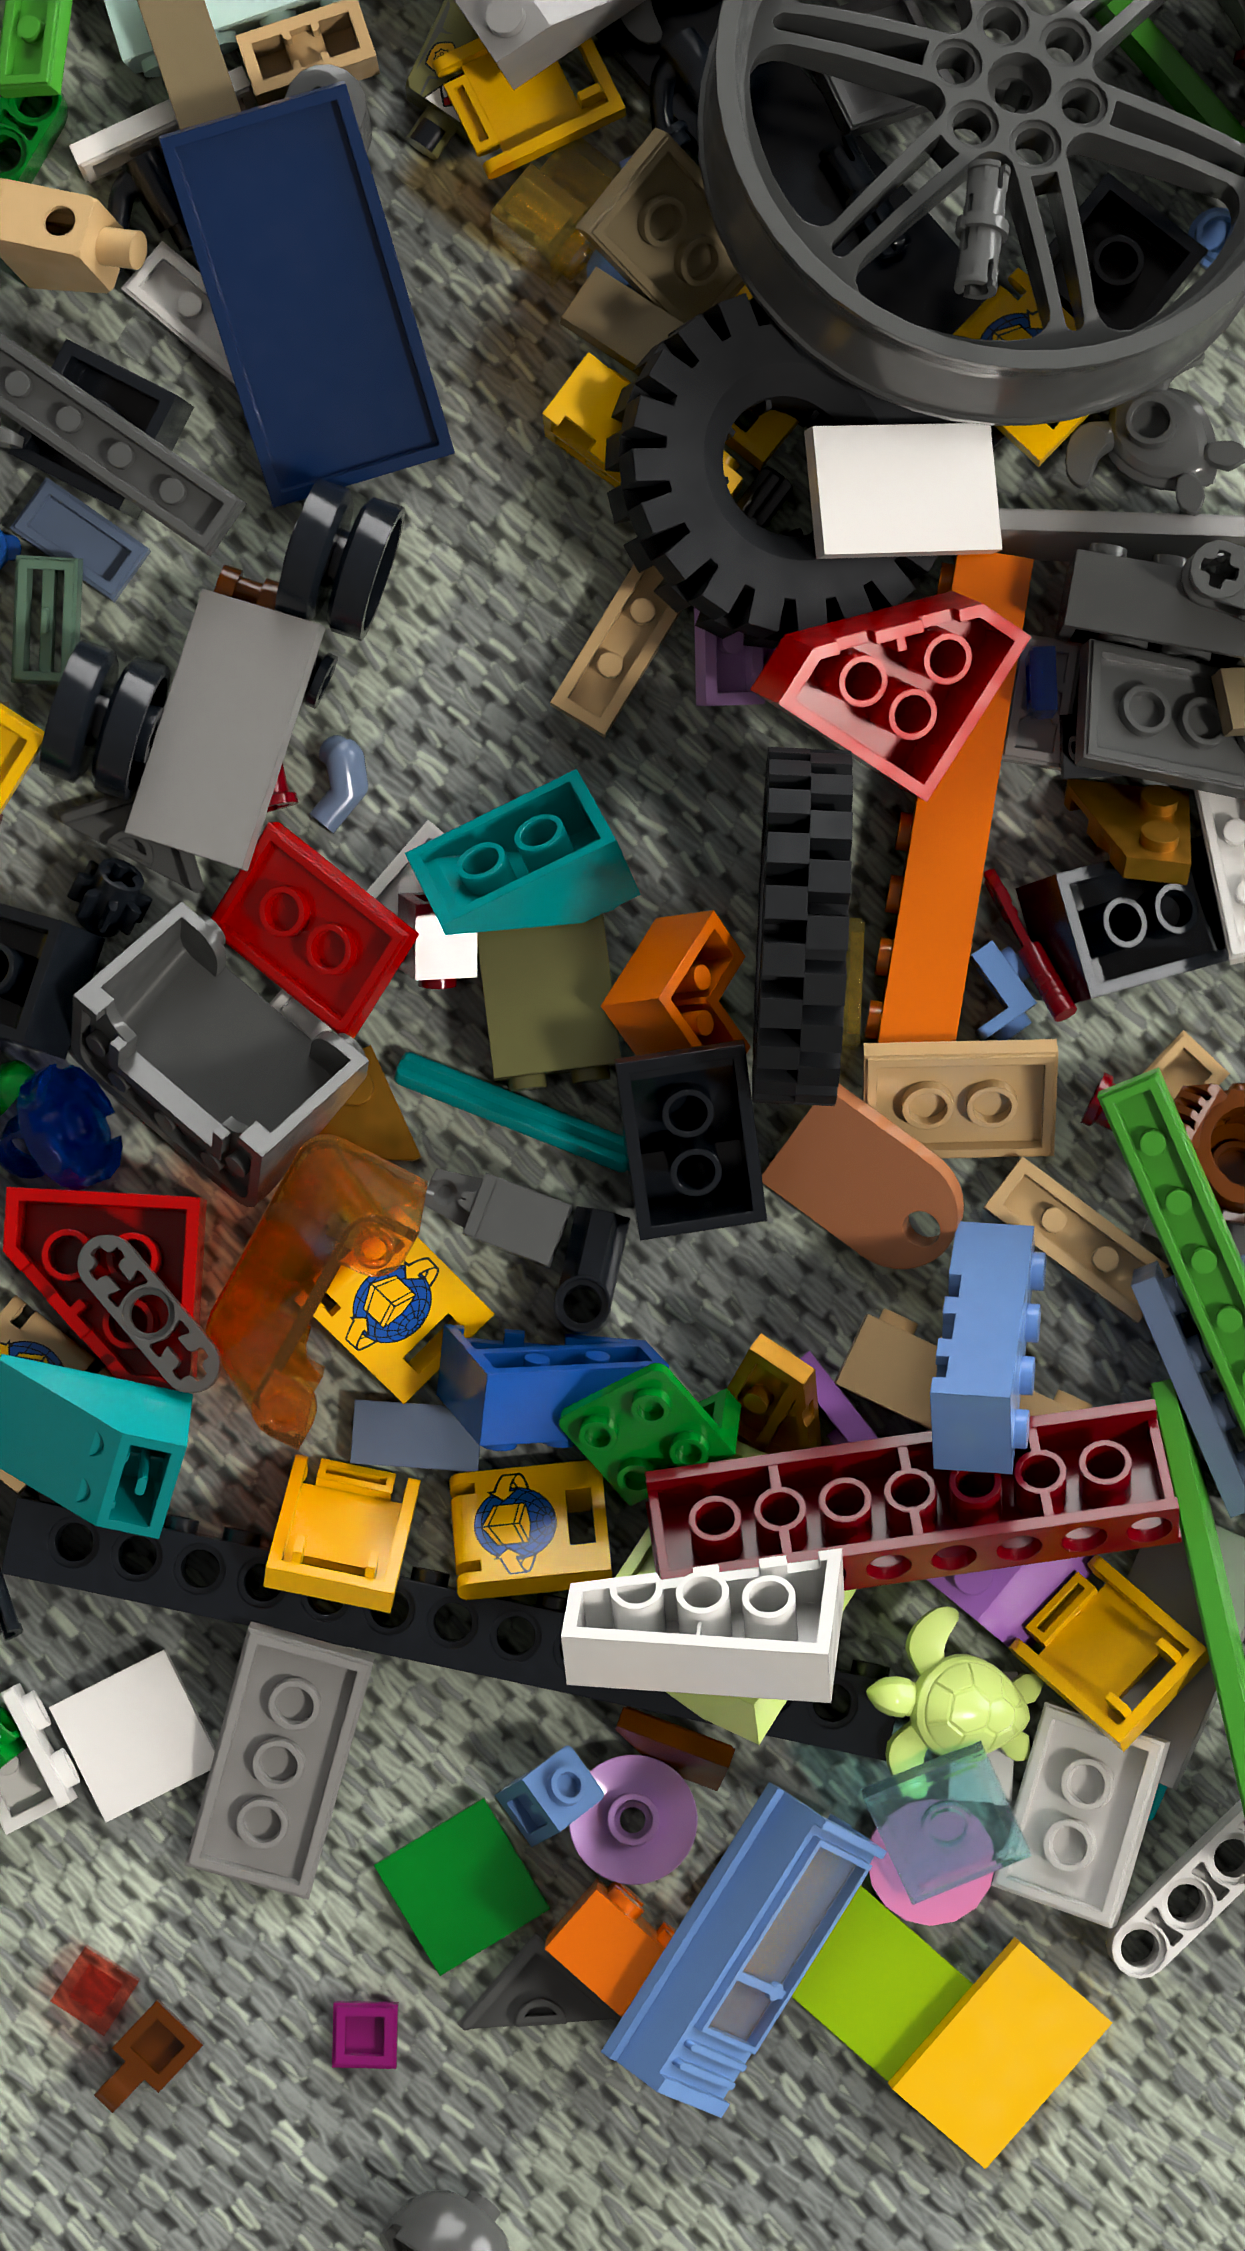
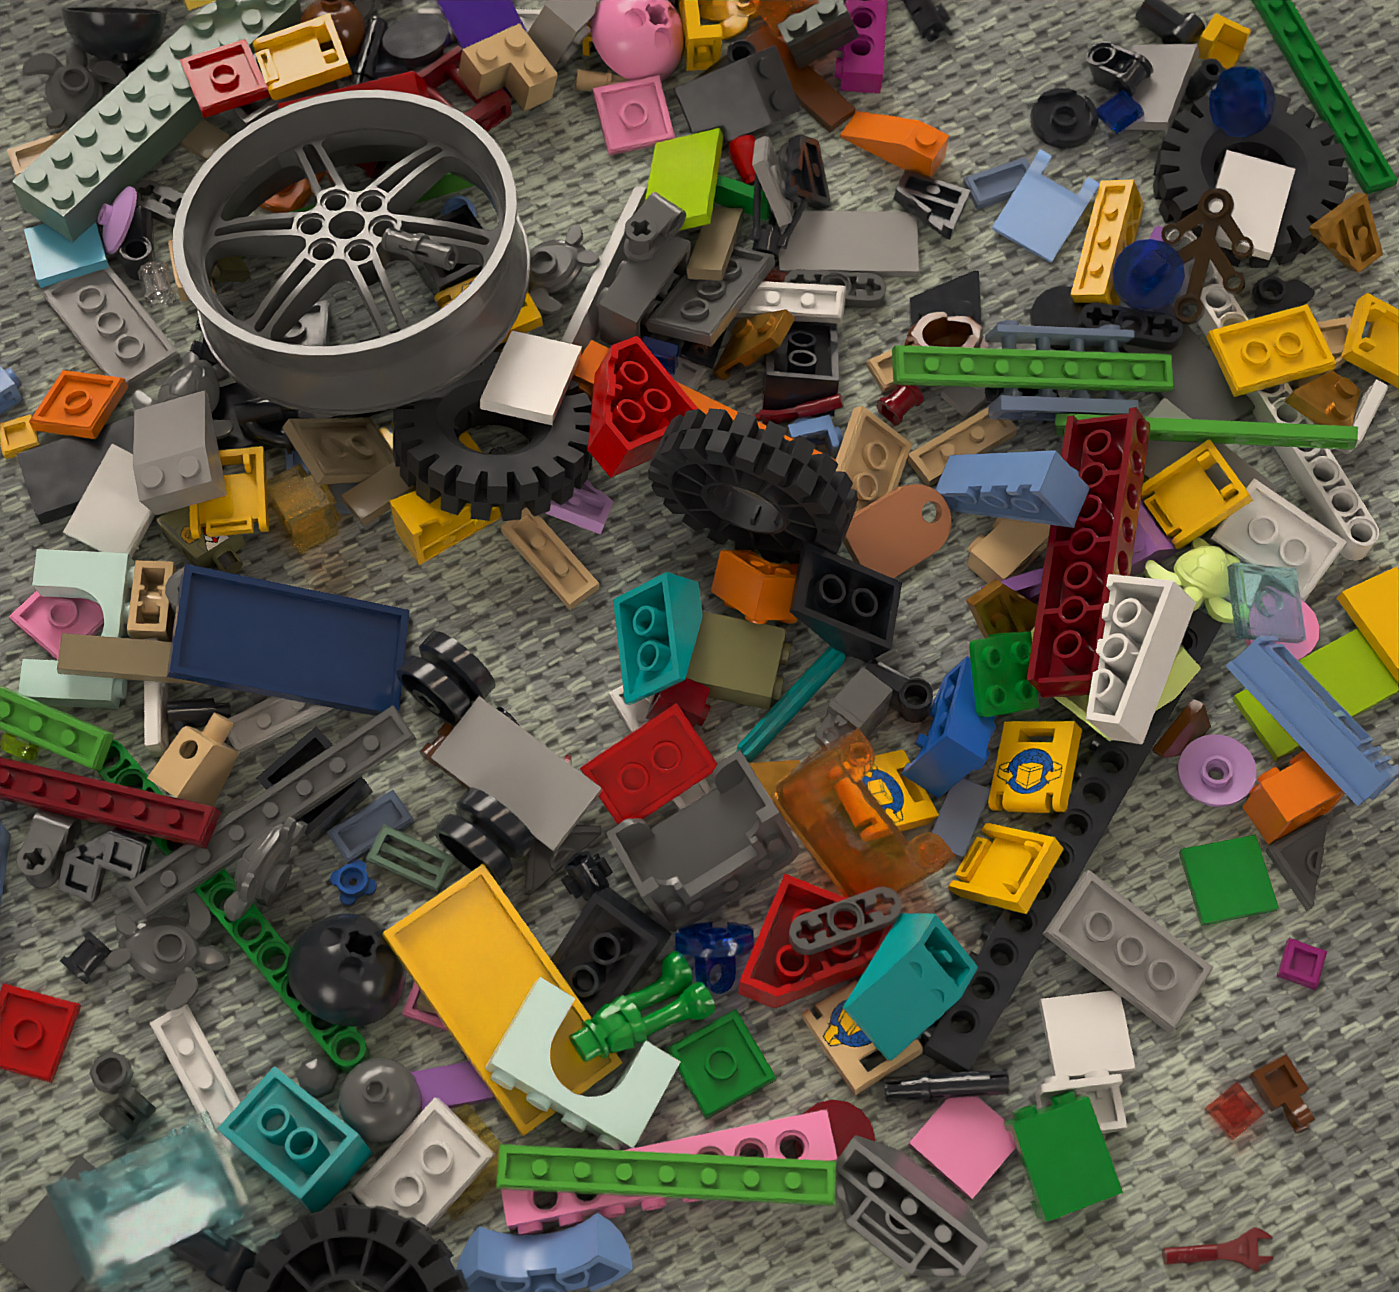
camera: 75 degrees left, 20 degrees down
(347, 781) = (571, 728): sand blue arm -> none
(550, 1796) = (1193, 811): medium blue bracket -> none

